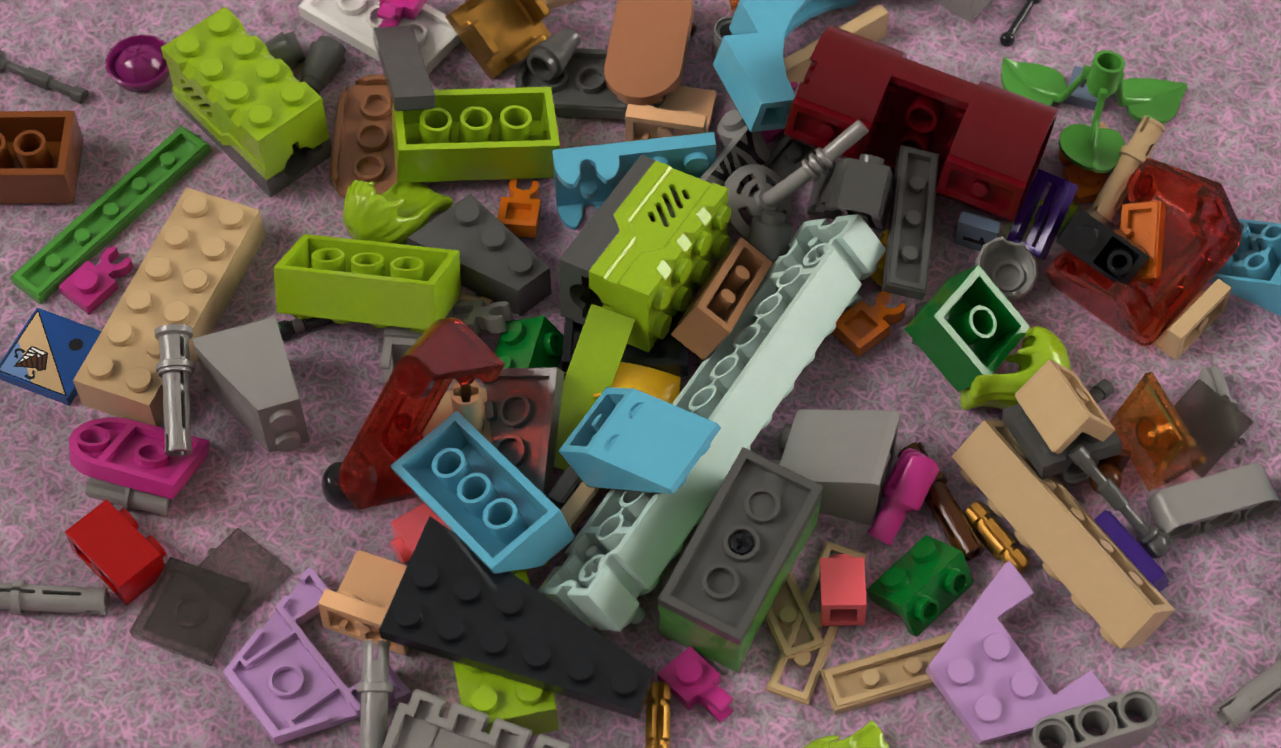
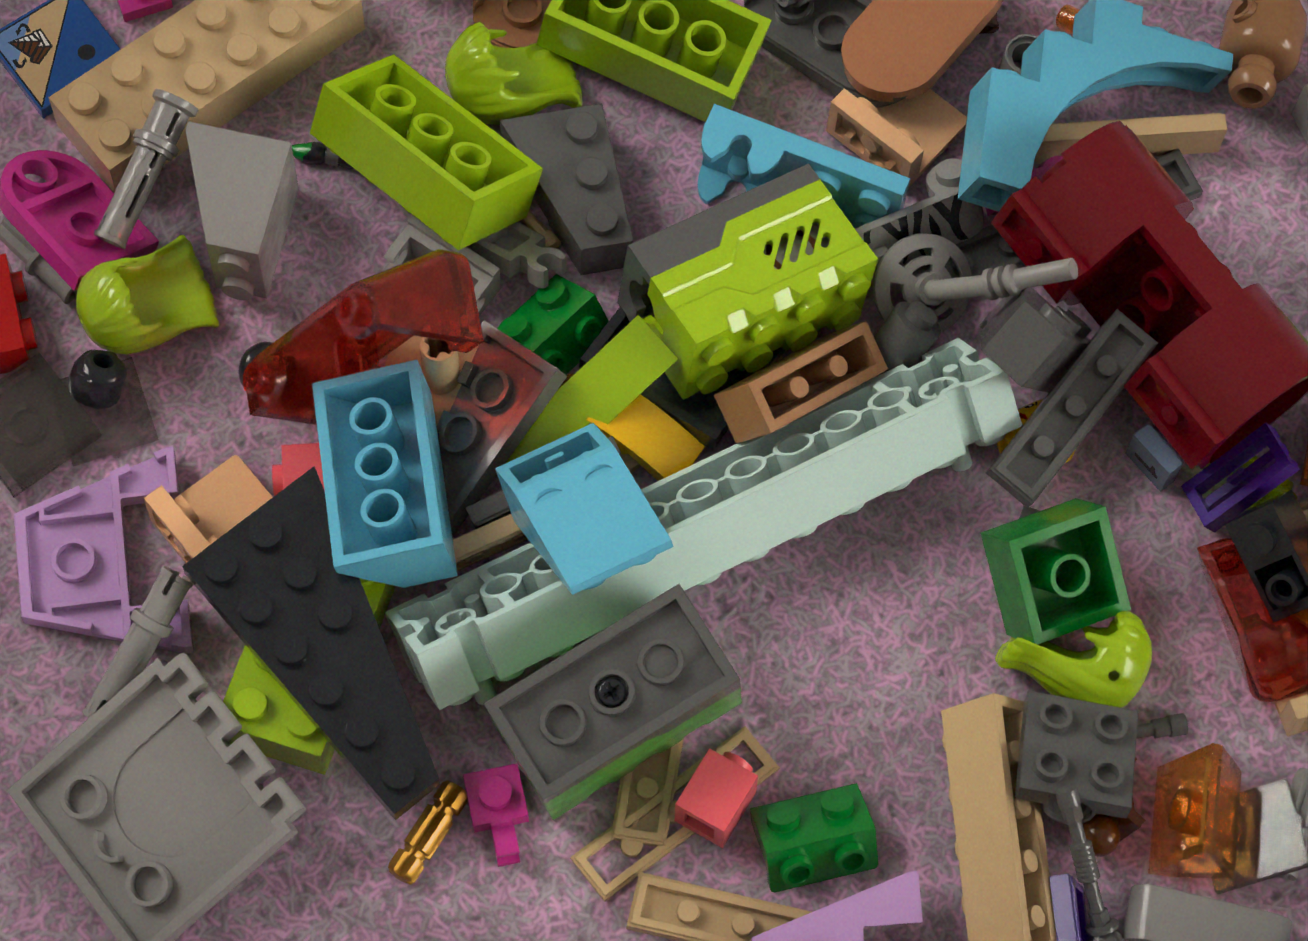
camera: 25 degrees right, 10 degrees up
(226, 480) = (145, 299): none -> lime piece
(226, 550) = (97, 379): none -> black piece
(521, 210) = (654, 153): orange plate -> none
(845, 454) = (807, 645): light grey slope -> none
(866, 326) = (951, 500): orange plate -> none
(903, 493) = (856, 723): dark pink arm -> none
(949, 514) = (899, 745): reddish brown pin -> none
(995, 536) = (933, 832): pearl gold axle -> none
(1010, 266) = (1163, 514): light grey hair -> none
(1061, 407) = (1086, 731): tan panel -> none

